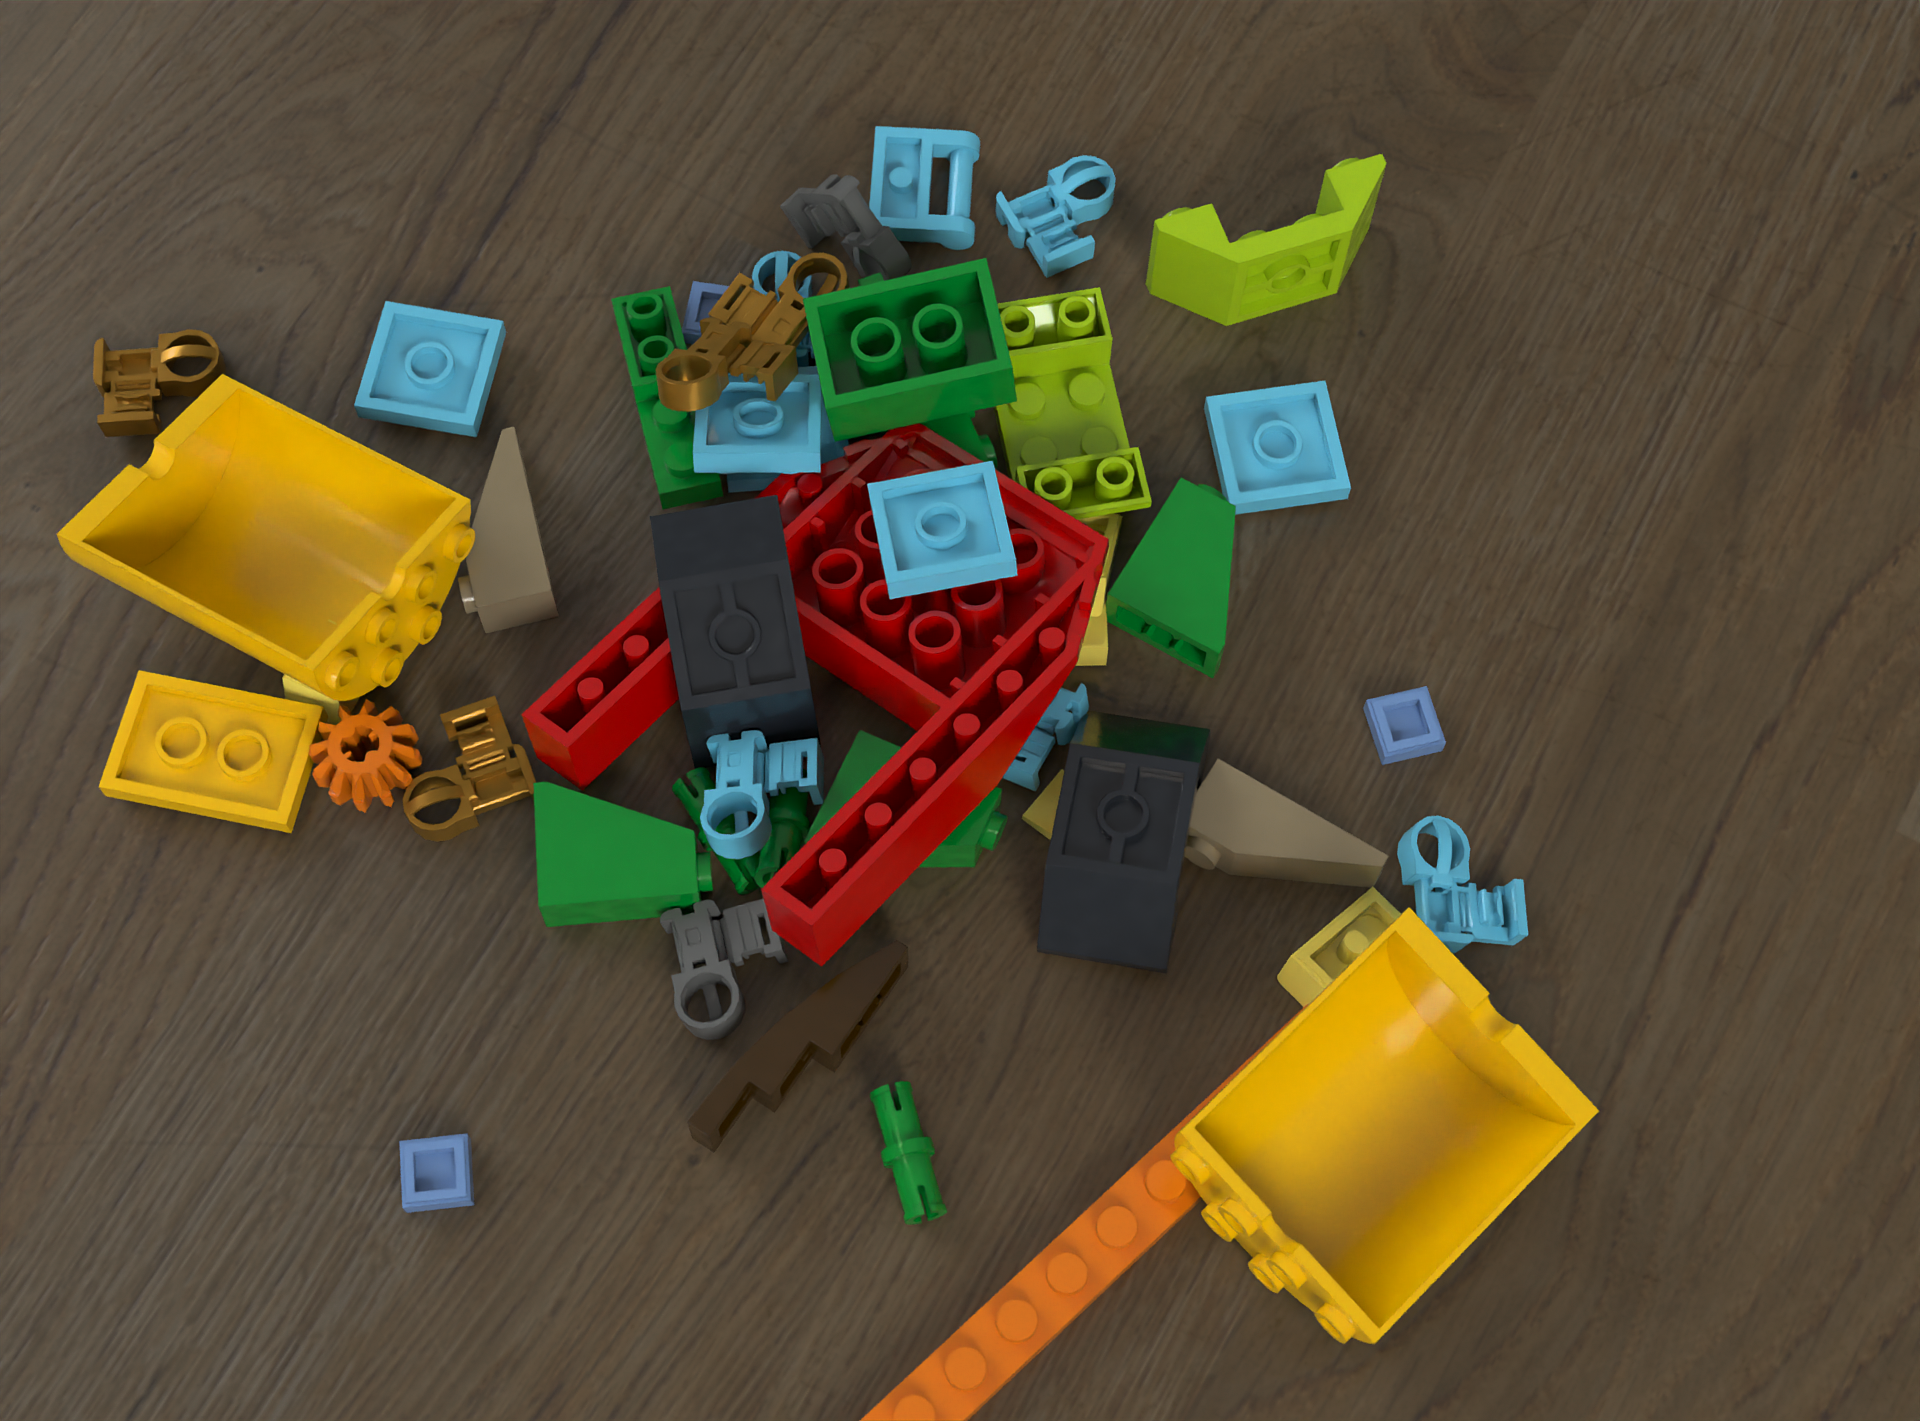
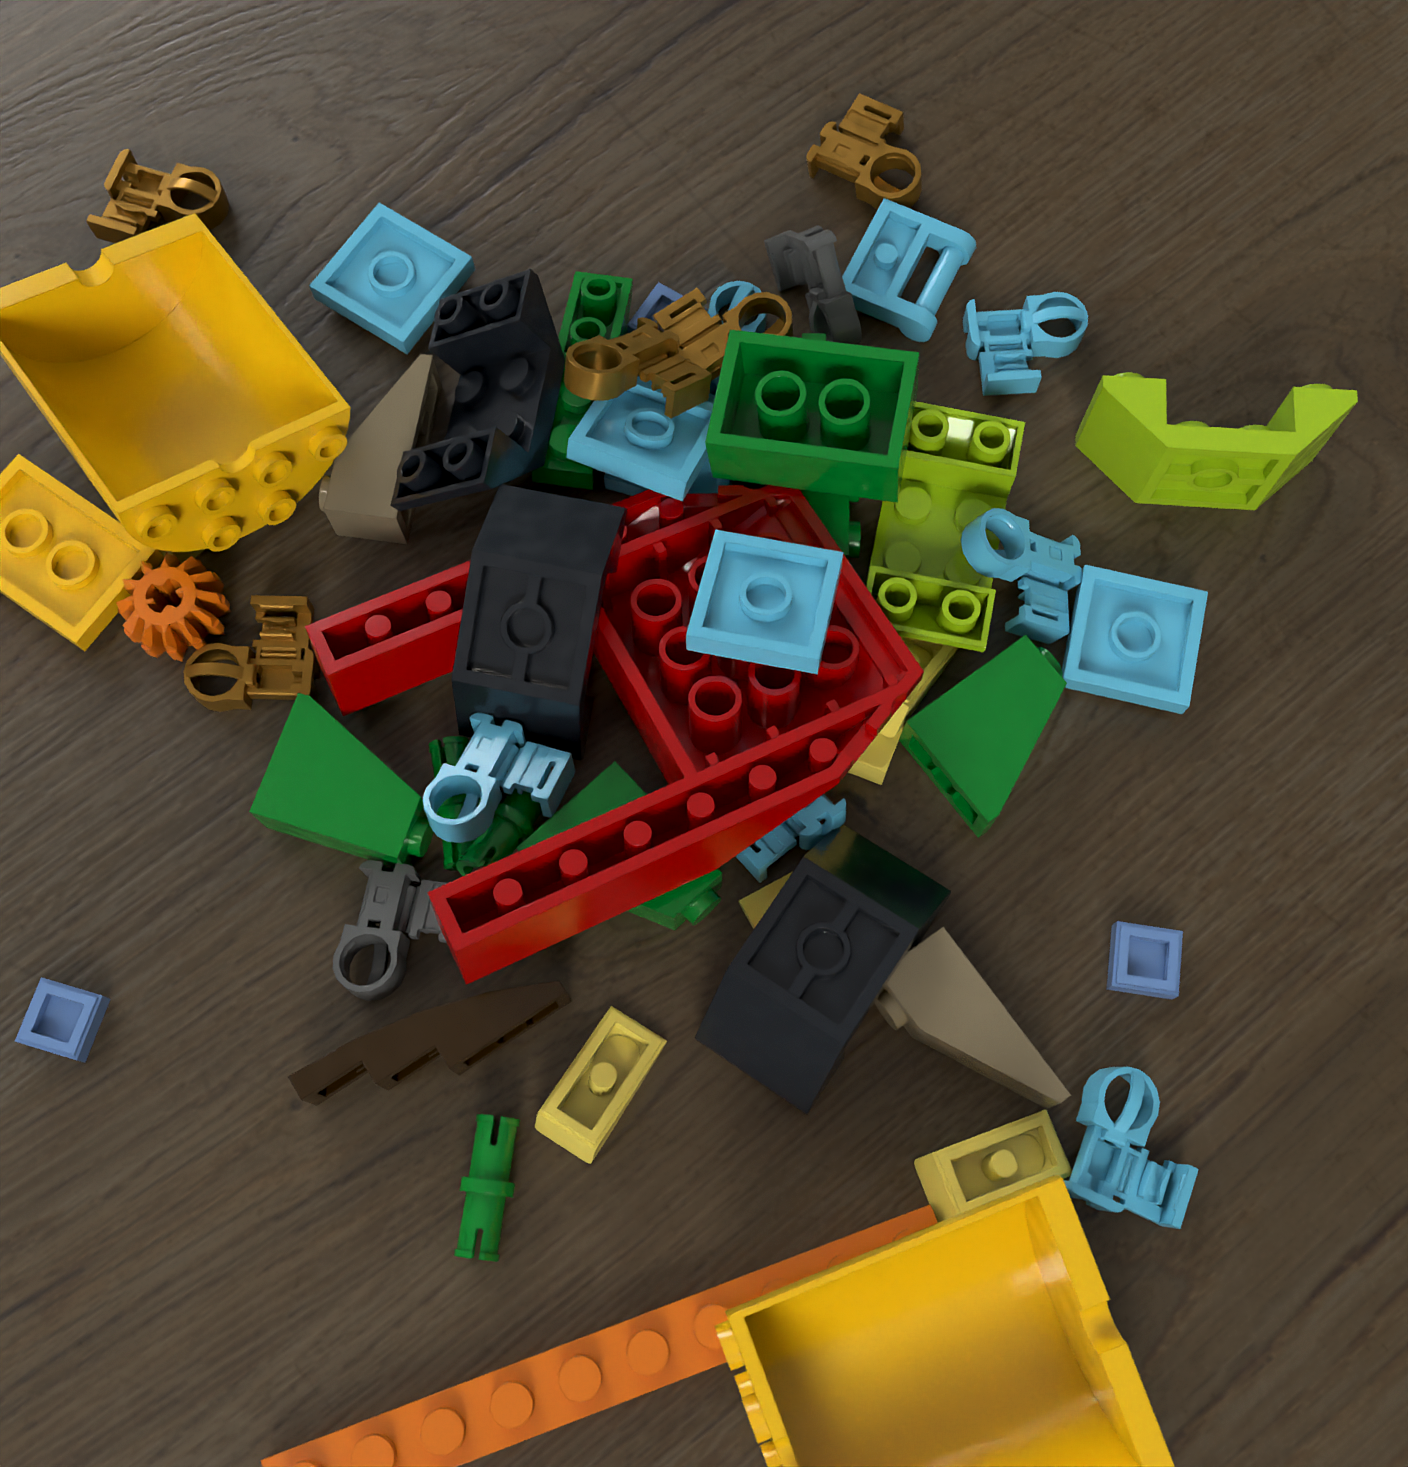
camera: 25 degrees right, 5 degrees up
(595, 439) = (505, 393): none -> black slope
(829, 82) = (862, 142): none -> pearl gold piece
(968, 1027) = (599, 1085): none -> light yellow slope
(1167, 410) = (1042, 564): none -> medium azure piece

